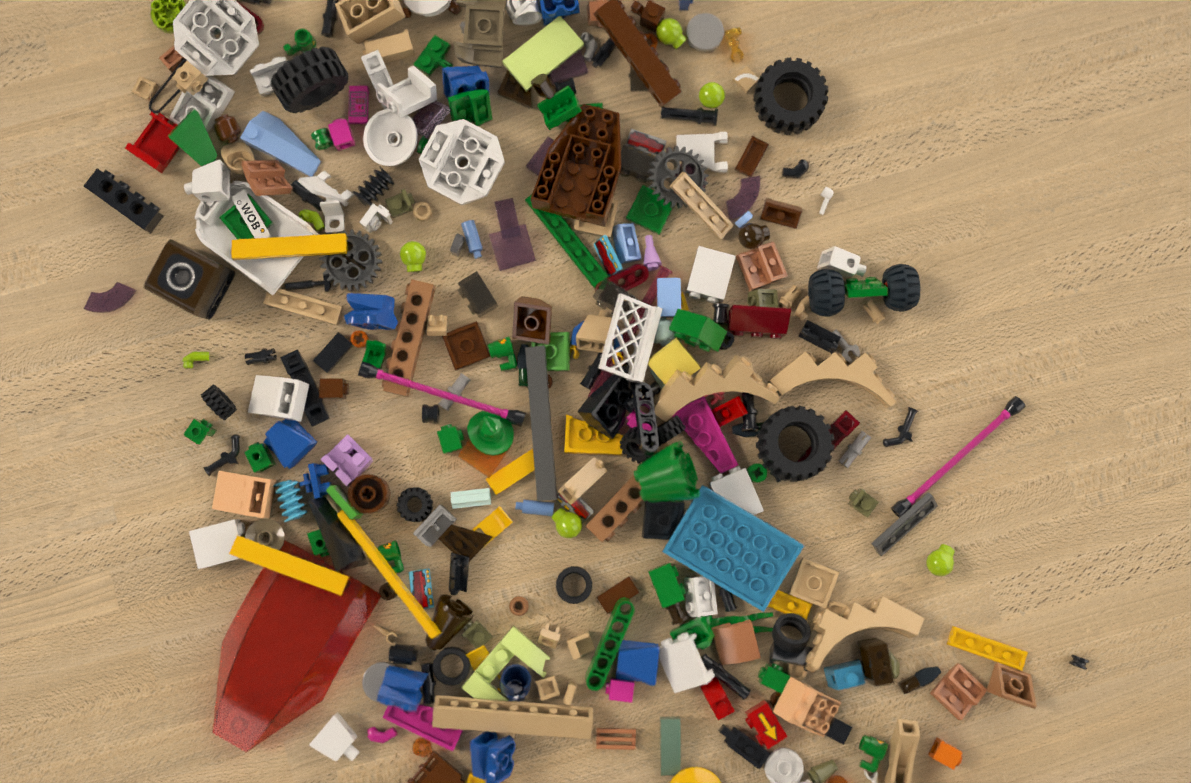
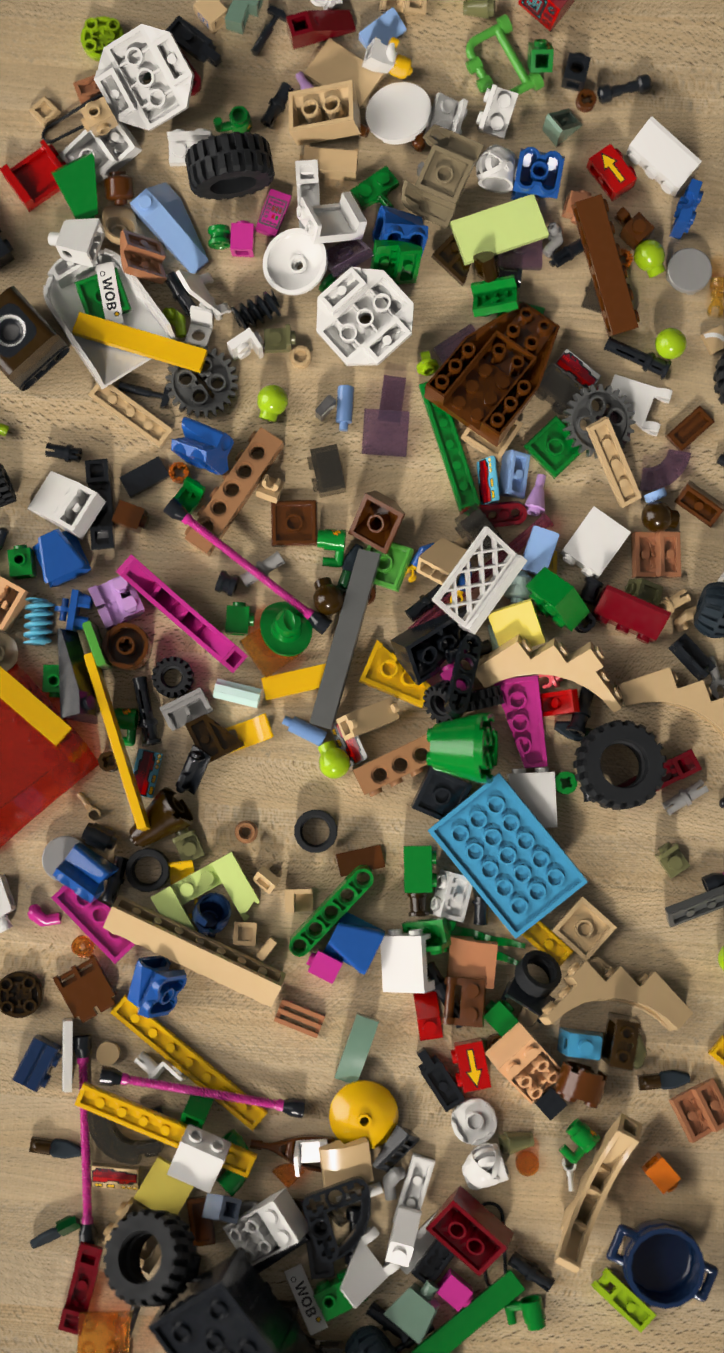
camera: 25 degrees right, 0 degrees up
(403, 452) = (181, 613): none -> dark pink arch
(408, 548) = (147, 721): none -> black pin
(514, 394) = (327, 597): none -> dark brown piece
(526, 182) = (427, 365): none -> lime plate
(747, 674) = (472, 1002): none -> reddish brown plate
(857, 707) = (580, 1083): none -> reddish brown brick

